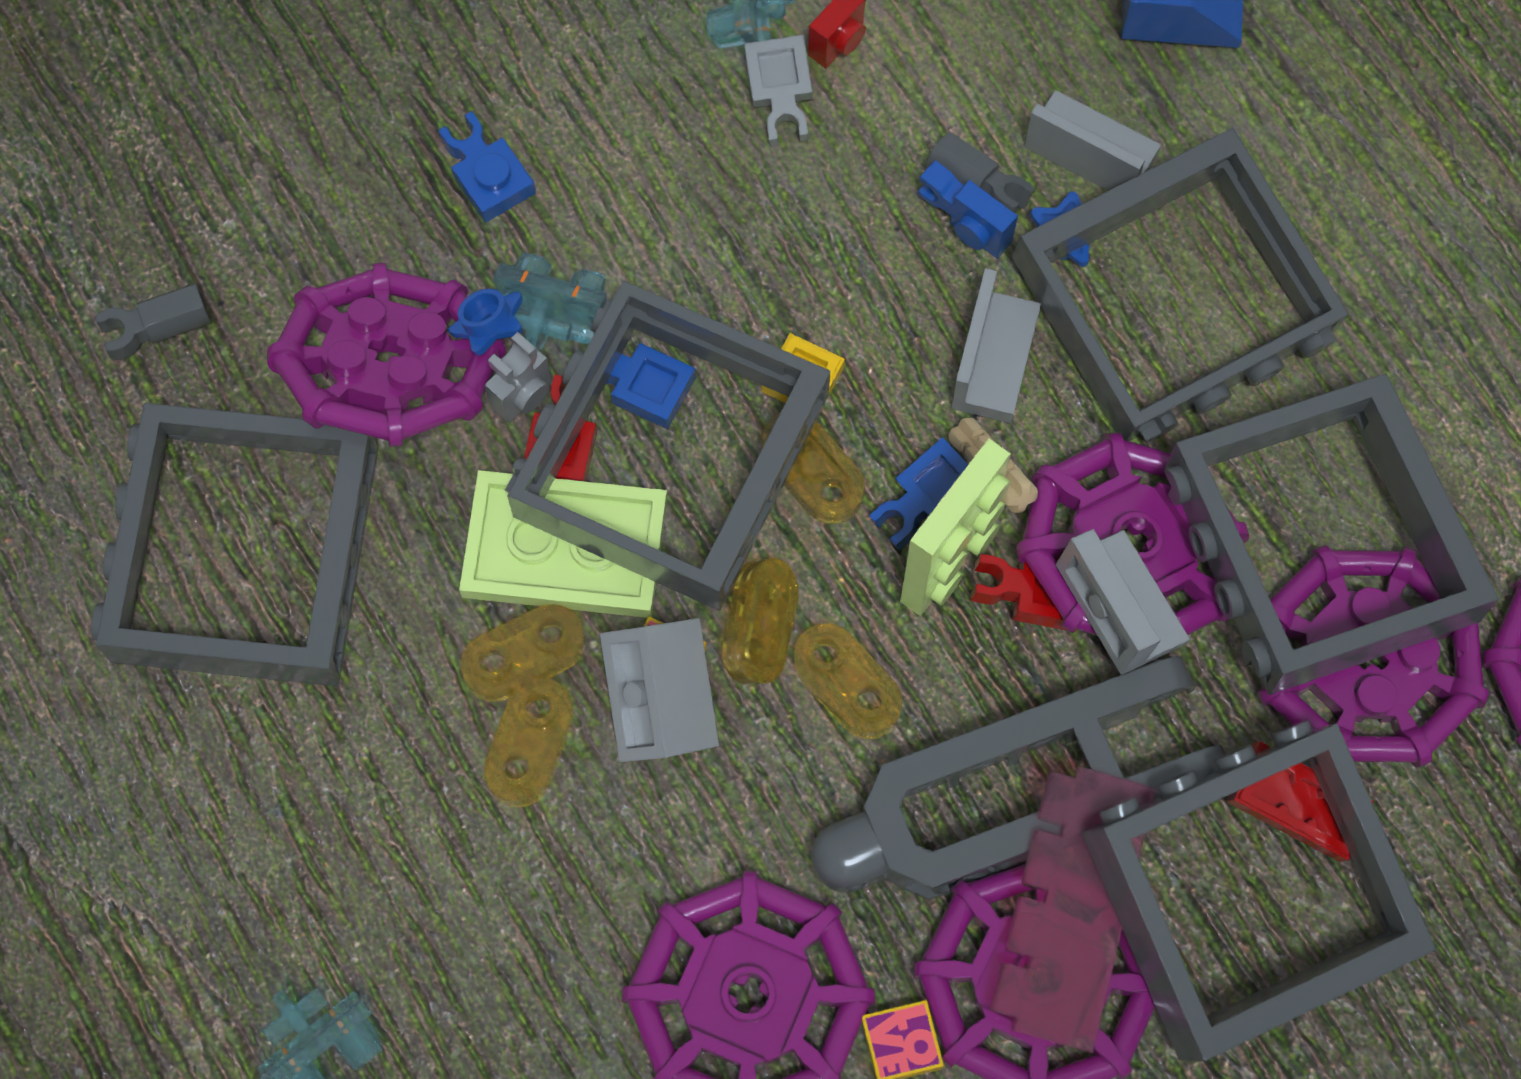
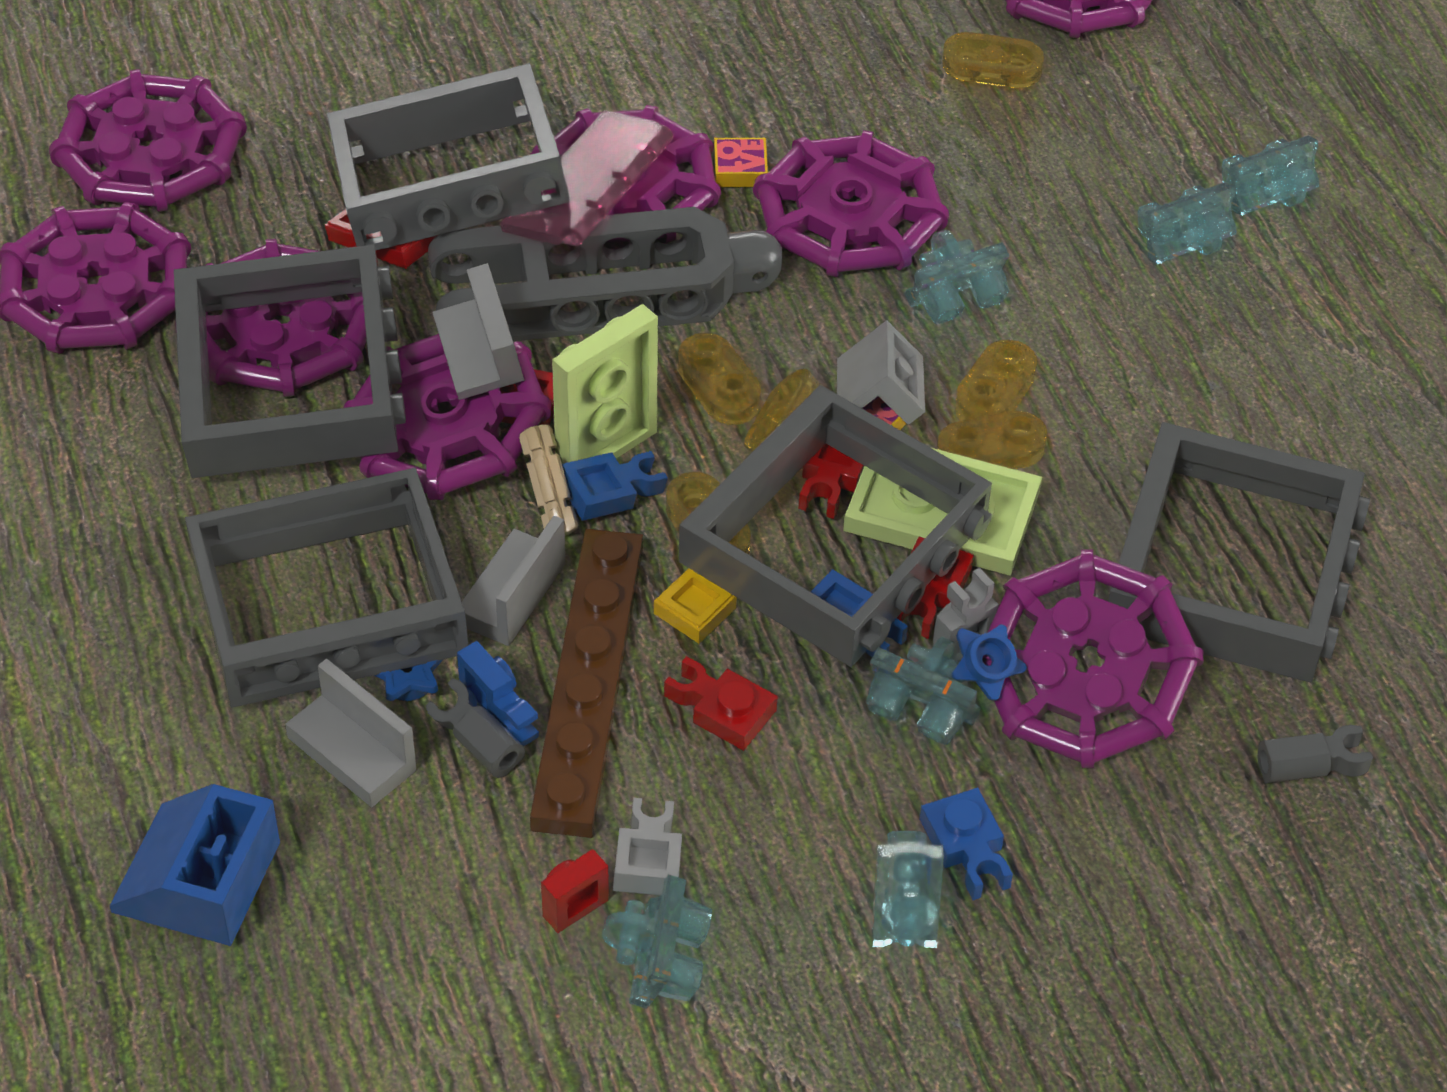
camera: 170 degrees left, 20 degrees down
(530, 54) = (907, 891): none -> clear light blue hips
(598, 884) = (956, 267): none -> clear light blue hips
(694, 552) = (826, 475): none -> red plate
(743, 262) = (726, 706): none -> red plate
(888, 271) = (587, 685): none -> reddish brown plate

